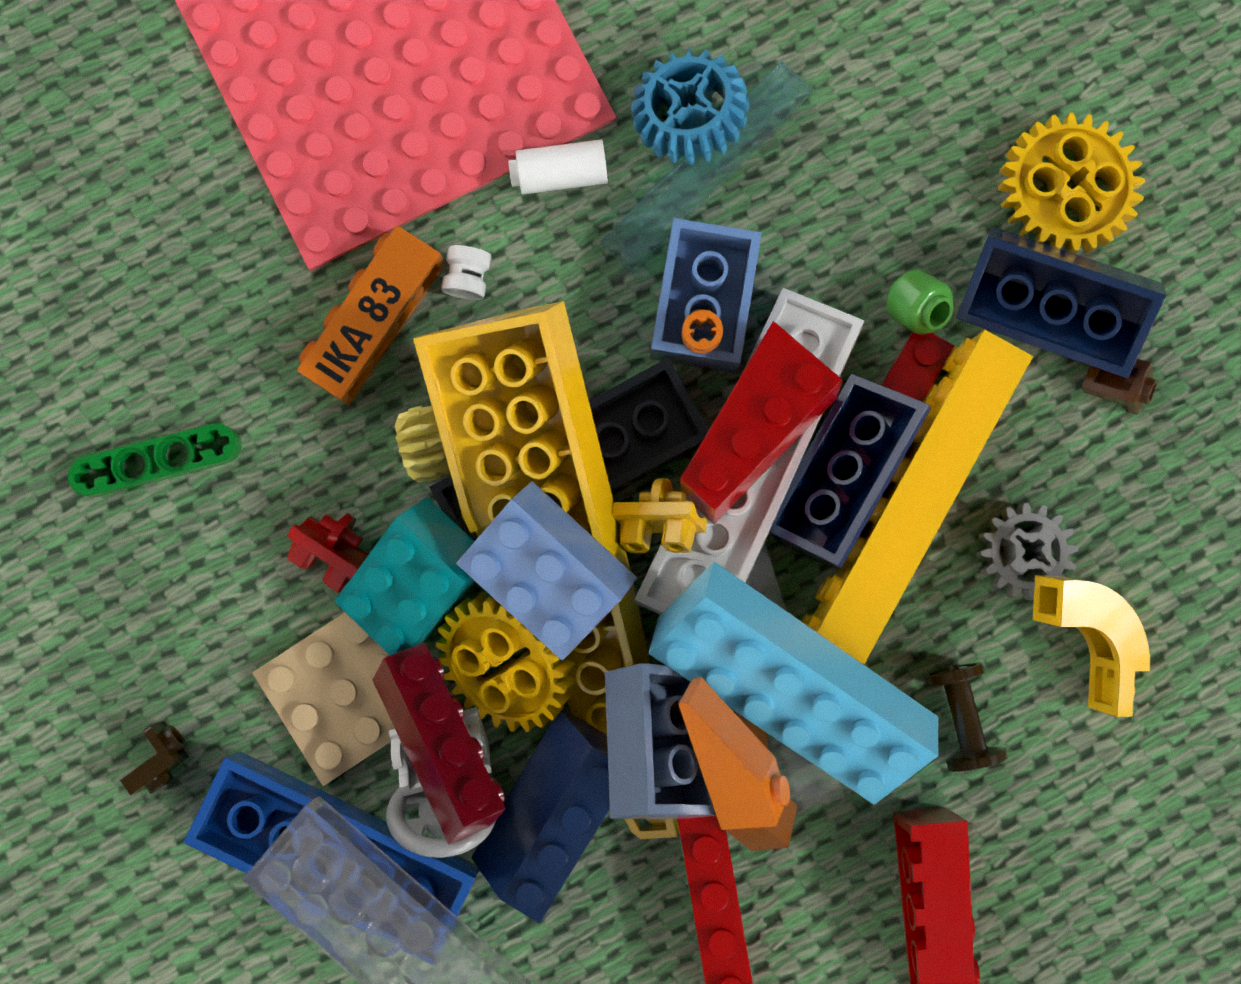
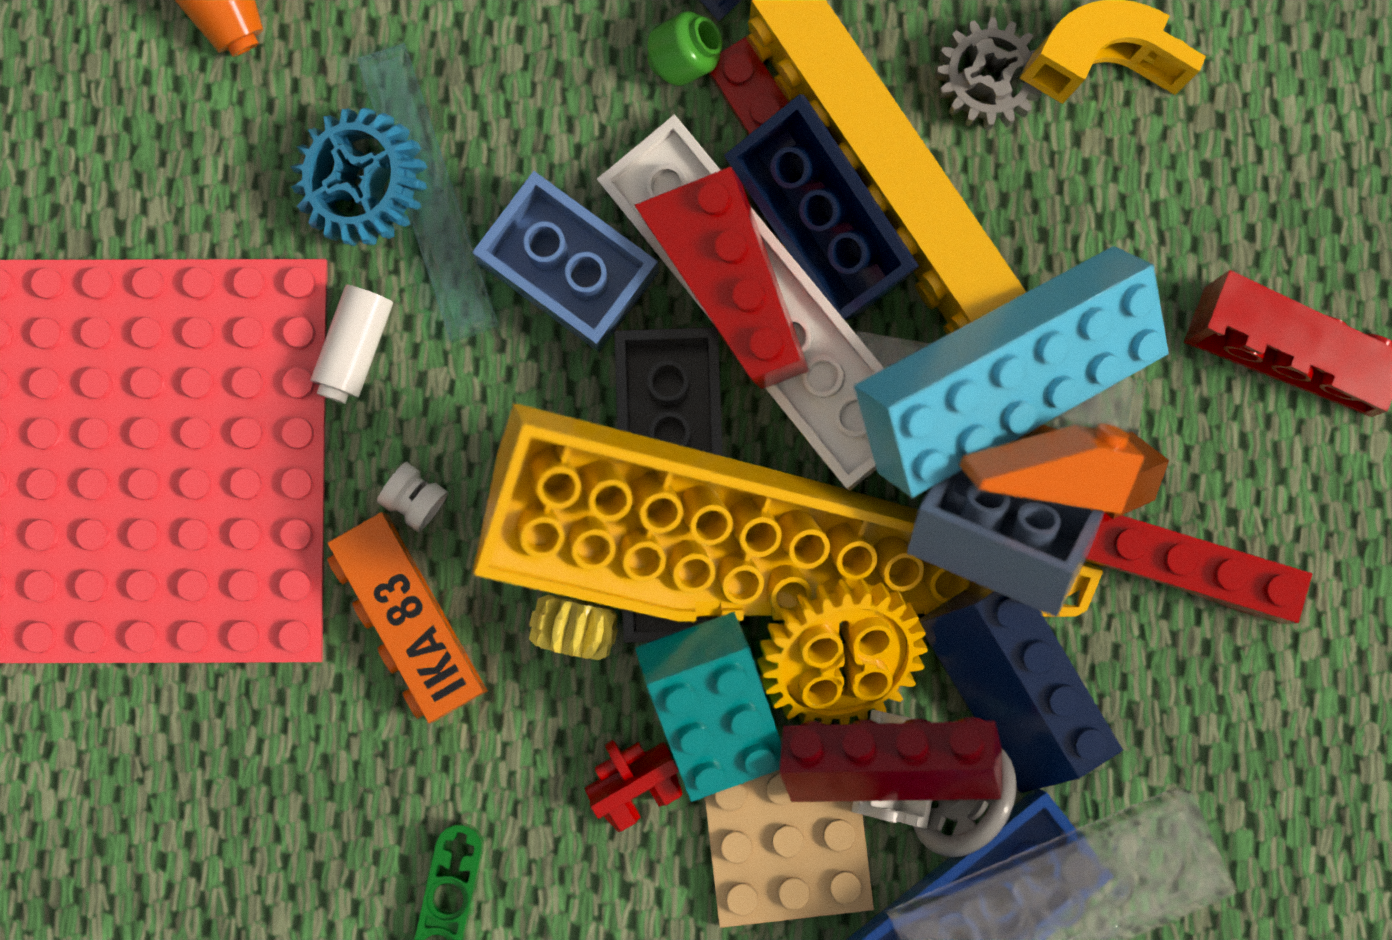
camera: 65 degrees left, 0 degrees up
(546, 570) = (778, 558): medium blue brick -> none
(659, 512) = (771, 418): yellow hips -> none
(700, 318) = (592, 278): orange bush -> none
(965, 718) = (1126, 220): dark brown hose -> none

